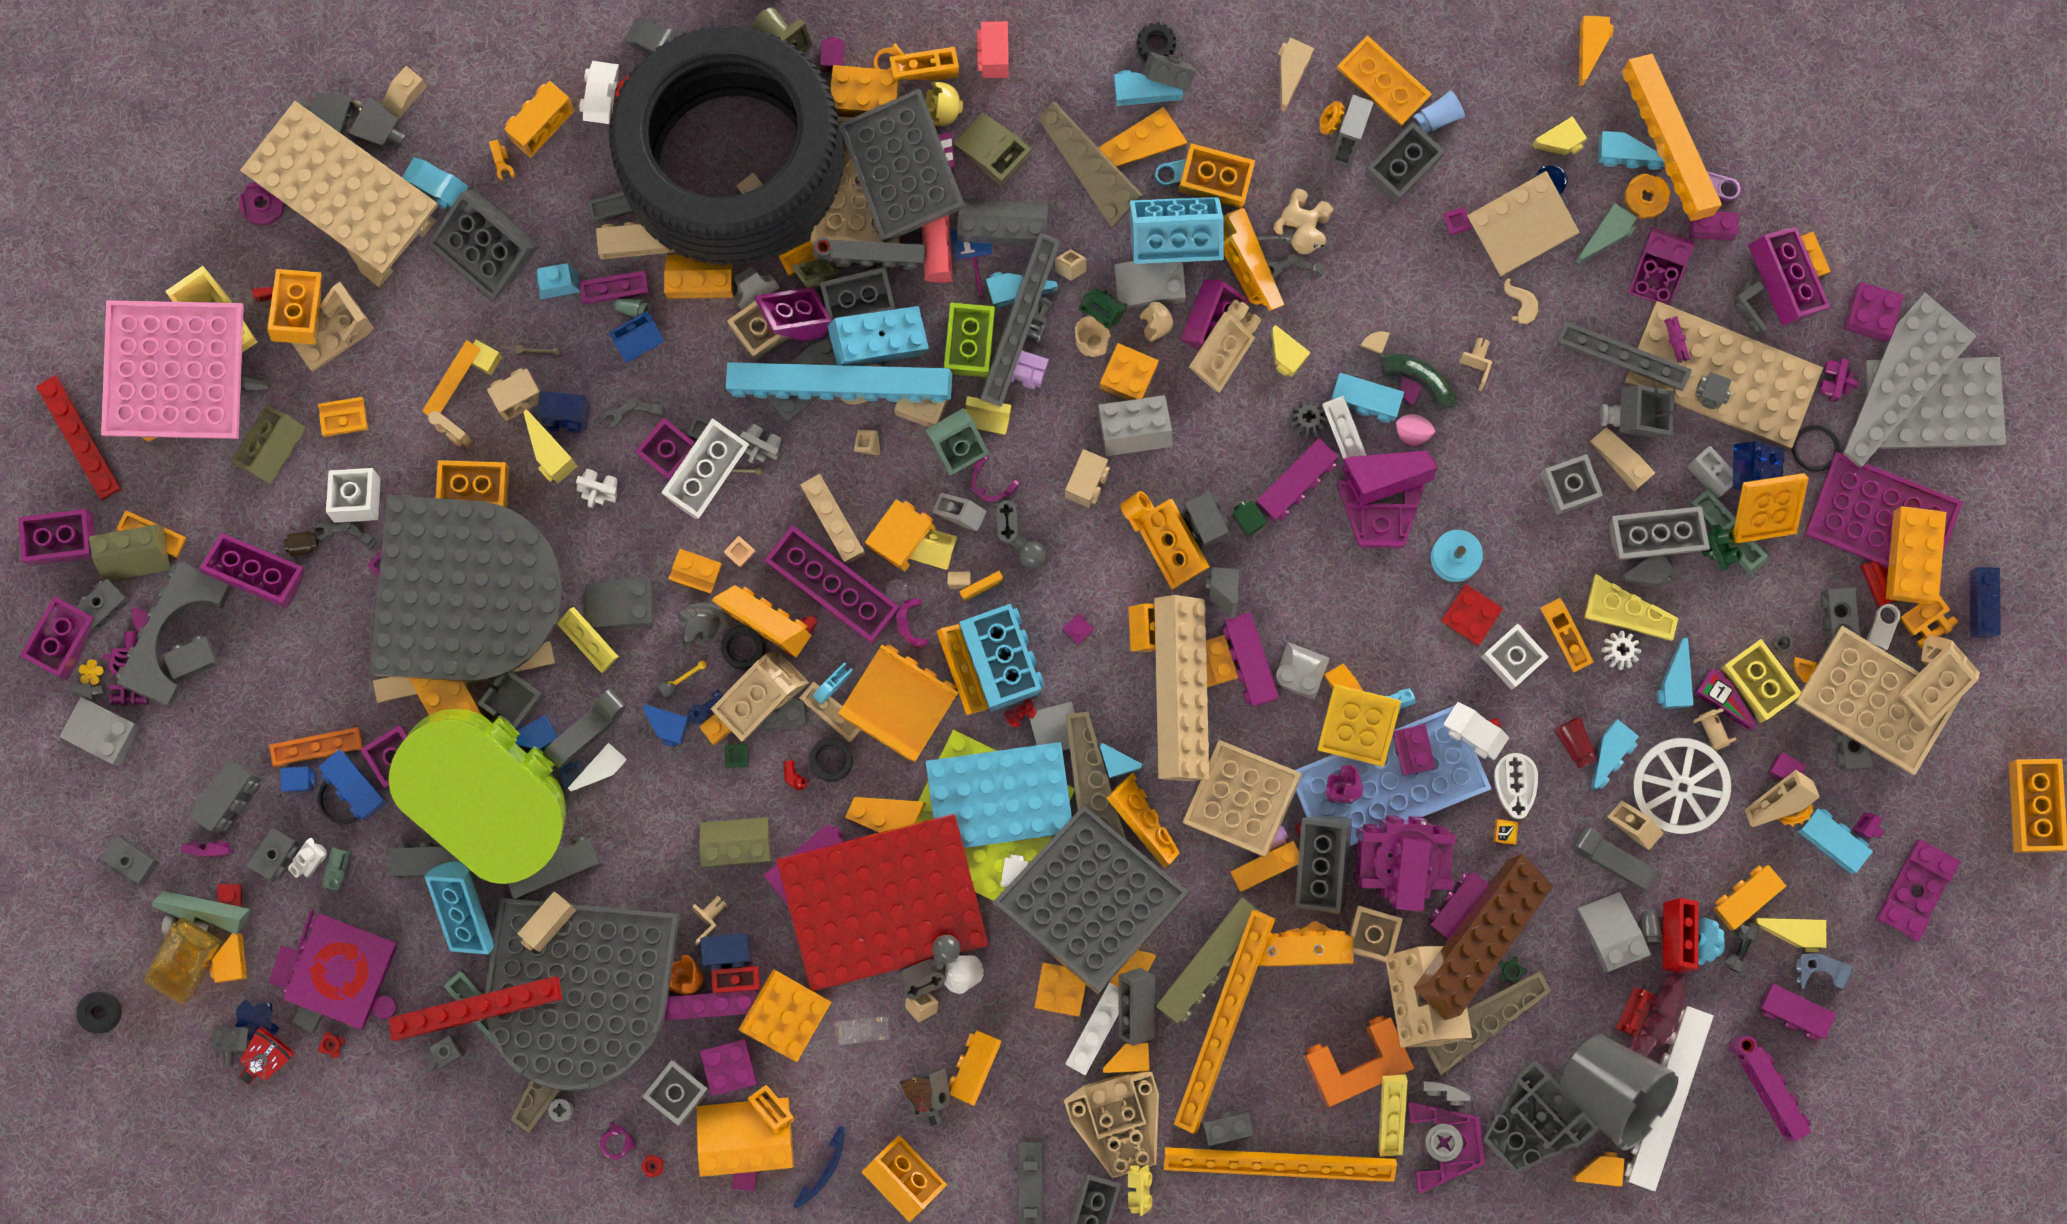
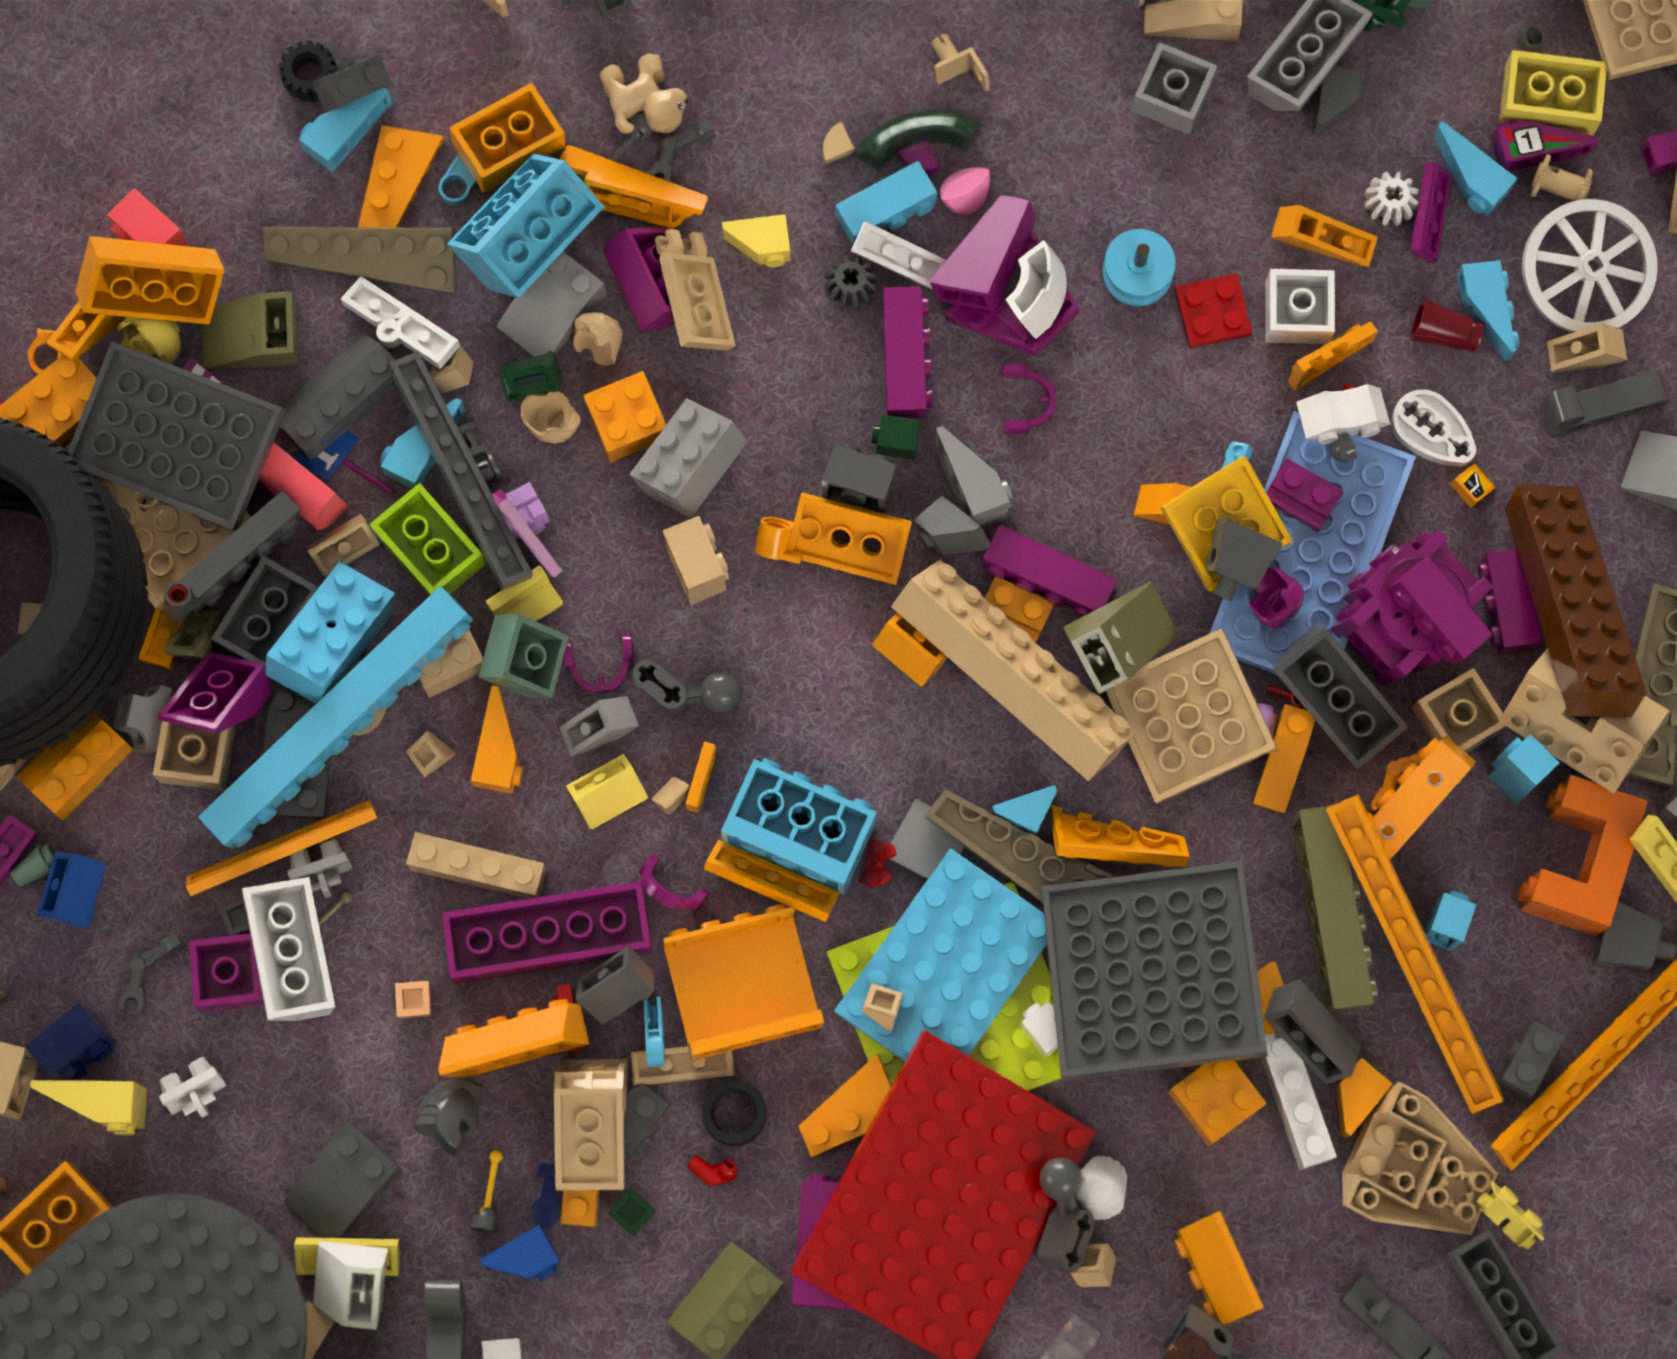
camera: 45 degrees left, 5 degrees down
(575, 654) = (350, 1283): none -> white slope
(695, 571) = (387, 1068): light orange plate -> none
(725, 646) = (502, 1076): black tyre -> none
(752, 416) = (280, 847): none -> light orange tile
(837, 643) = (615, 985): none -> dark grey brick
(897, 476) = (496, 757): none -> light orange slope
(899, 533) = (562, 810): light orange panel -> none
(930, 298) = (342, 544): none -> tan slope
(949, 782) = (882, 1005): none -> tan slope
(967, 76) = (149, 280): none -> light orange brick
(1019, 383) = (526, 533): none -> tile
(1068, 216) = (399, 323): none -> white hinge
(1078, 629) = (844, 721): magenta plate -> none
(1249, 726) = (1121, 636): none -> olive slope
(1259, 581) = (972, 481): none -> light grey slope
(1259, 1023) = (1449, 920): none -> medium azure brick
(1300, 670) = (1108, 534): light grey slope -> none
(1317, 576) = (1020, 371): none -> magenta piece
(1338, 1125) = (1632, 942): none -> dark grey torso
(1346, 747) = (1239, 557): none -> dark grey torso
(1372, 989) = (1522, 767): none -> medium azure brick
(1392, 517) = (1040, 289): none -> white brick
(1457, 748) = (1344, 449): none -> dark grey hinge
(1505, 696) = (1331, 354): none -> light orange wing
(1512, 964) = (1634, 613): dark green plate -> none
(1621, 609) = (1348, 160): light yellow wing -> none
(1633, 677) = (1431, 212): none -> magenta tile
(1803, 668) = (1578, 43): light orange tile -> none

